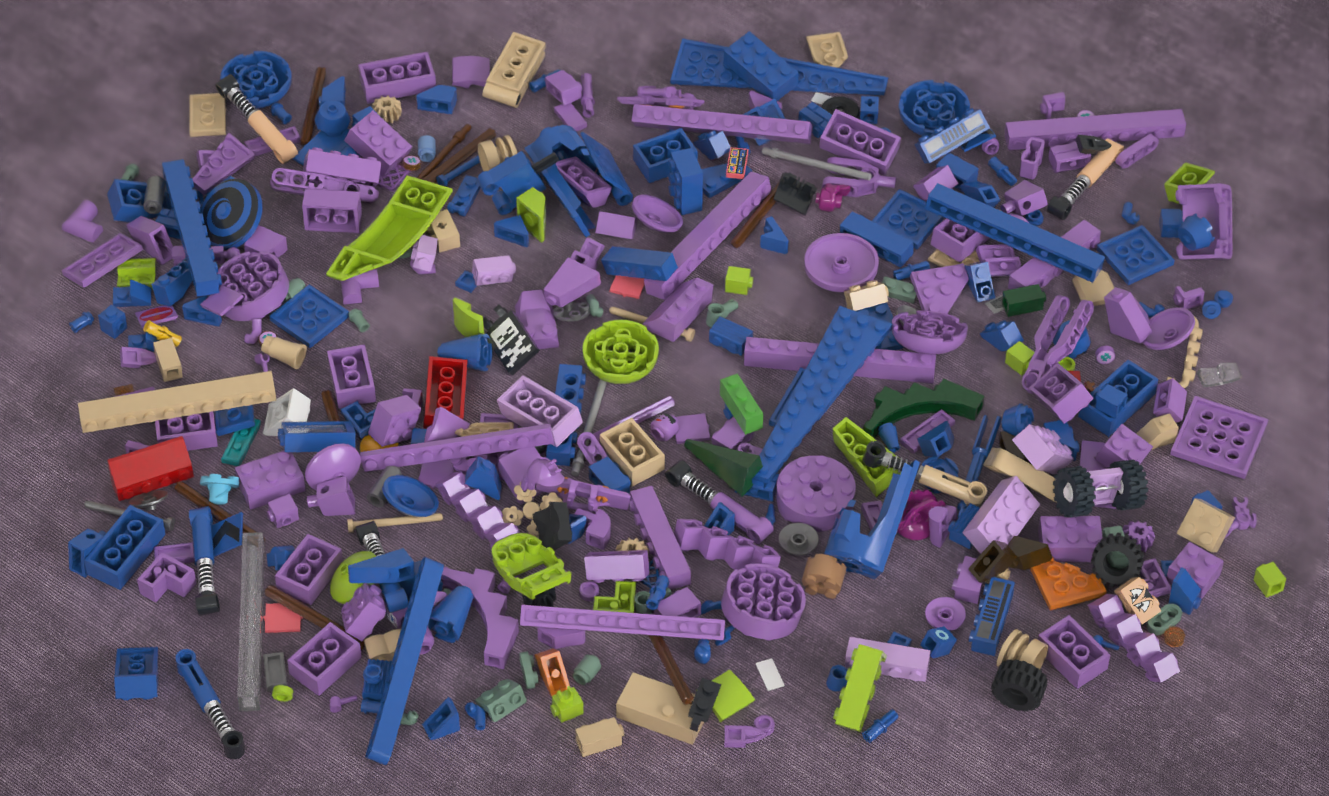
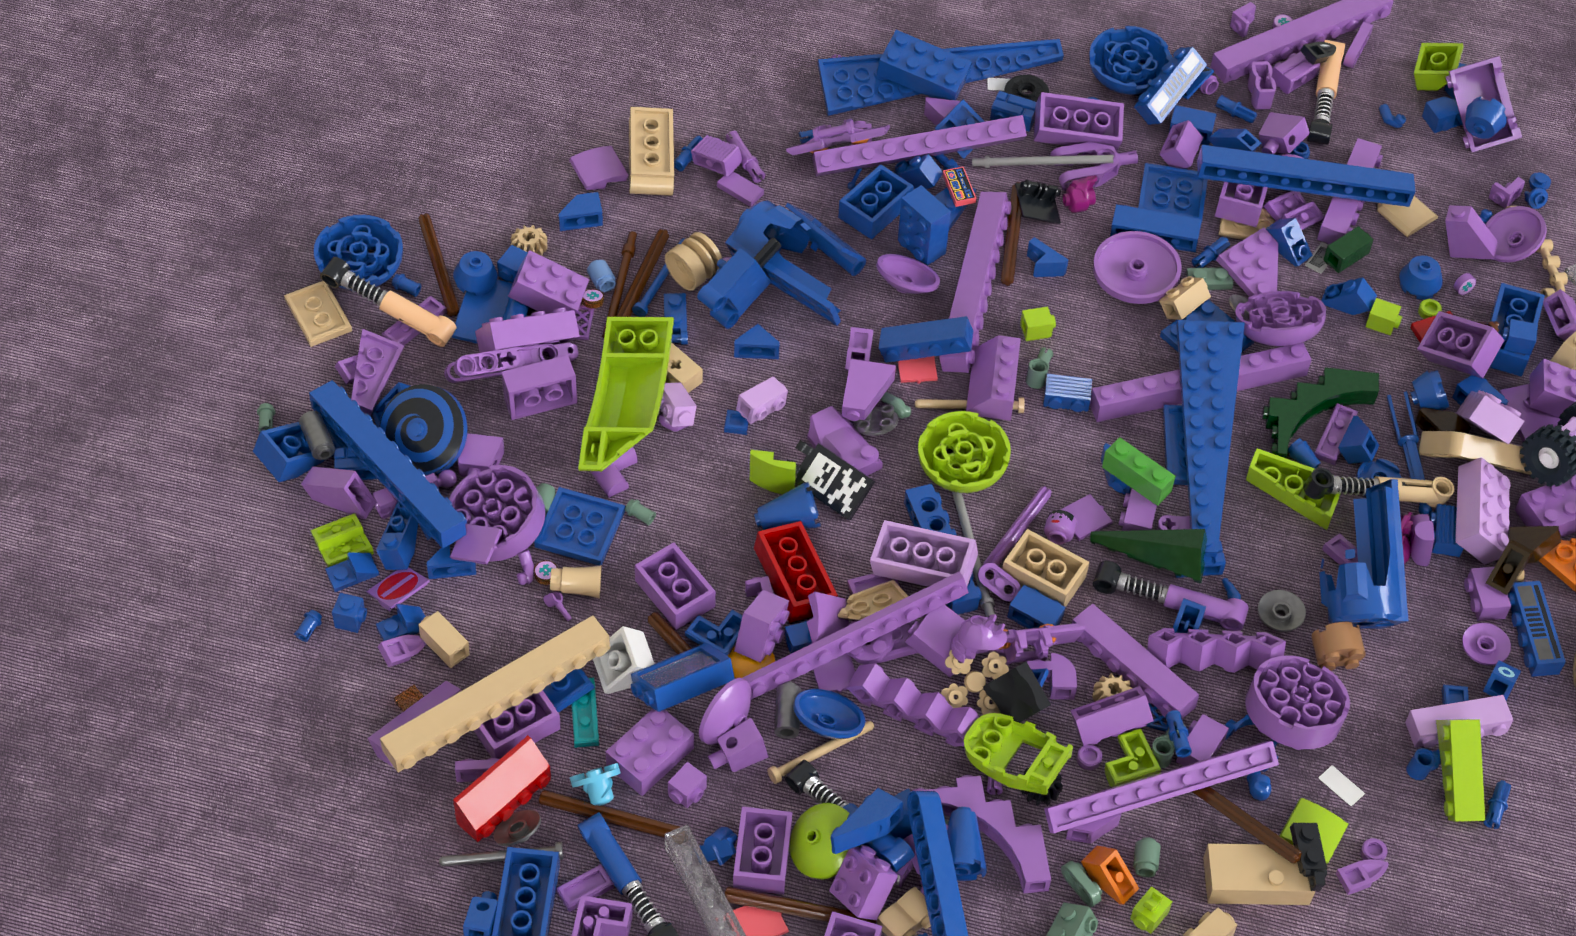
camera: 25 degrees left, 5 degrees up
(80, 222) = (236, 499): medium lavender brick -> none
(102, 260) = (291, 538): medium lavender plate -> none
(161, 332) = (419, 608): yellow pin -> none
(227, 534) = (640, 839): blue piece -> none
(335, 91) = (458, 243): blue slope -> none
(397, 76) = (522, 200): medium lavender brick -> none
(484, 476) = (901, 660): blue slope -> none
(533, 212) = (774, 315): lime slope -> none
(584, 181) = (812, 260): medium lavender slope -> none
(616, 225) = (866, 301): medium lavender brick -> none
(814, 491) = (1269, 548): medium lavender brick -> none
(827, 49) = (973, 25): tan tile -> none
(869, 105) = (1060, 77): blue brick -> none
(1041, 360) = (1415, 314): medium lavender piece -> none
(1135, 255) = (1427, 158): blue plate -> none

